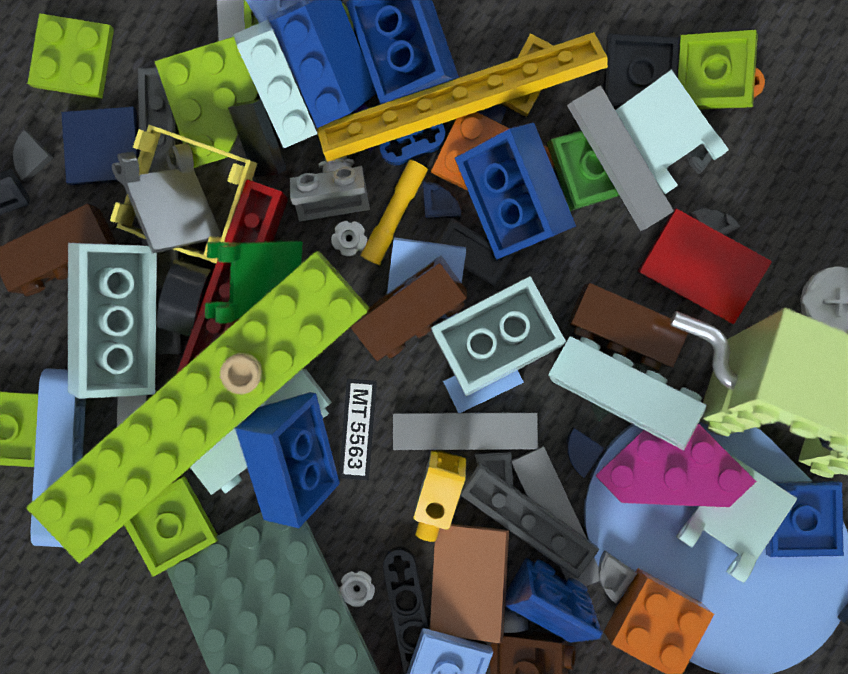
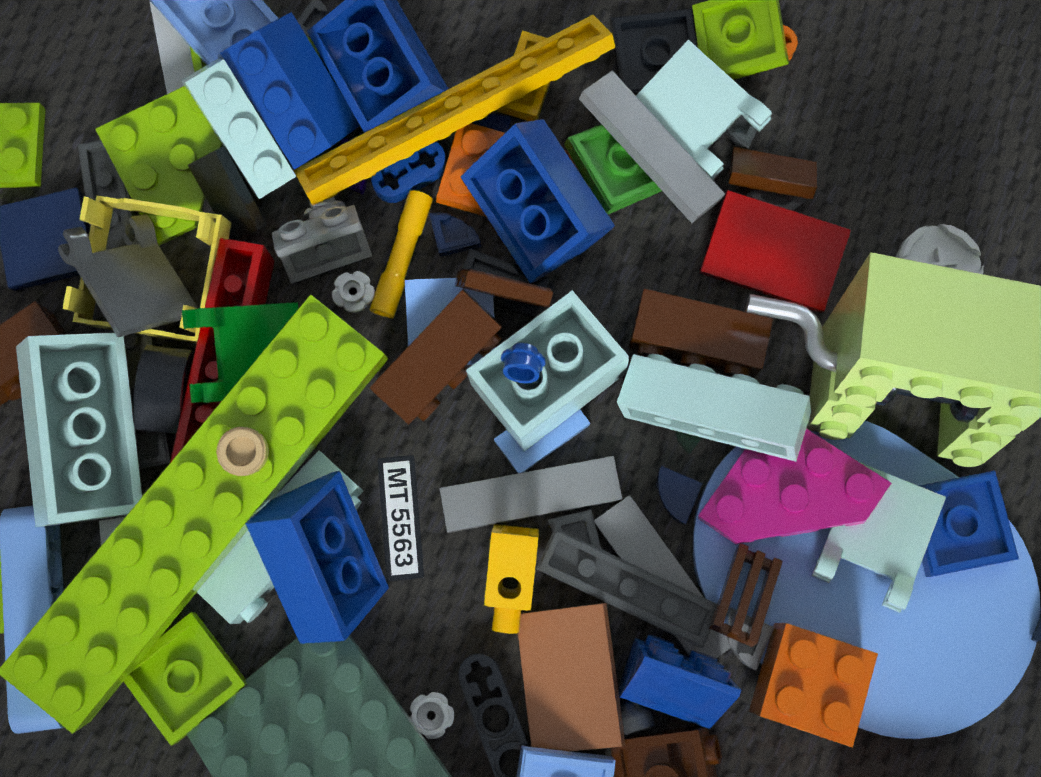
camera: 15 degrees left, 10 degrees down
(474, 263) = (504, 287): none -> reddish brown tile
(478, 333) = (522, 363): none -> blue plate
(636, 519) = (757, 563): none -> reddish brown tile
(717, 198) = (773, 173): none -> reddish brown tile

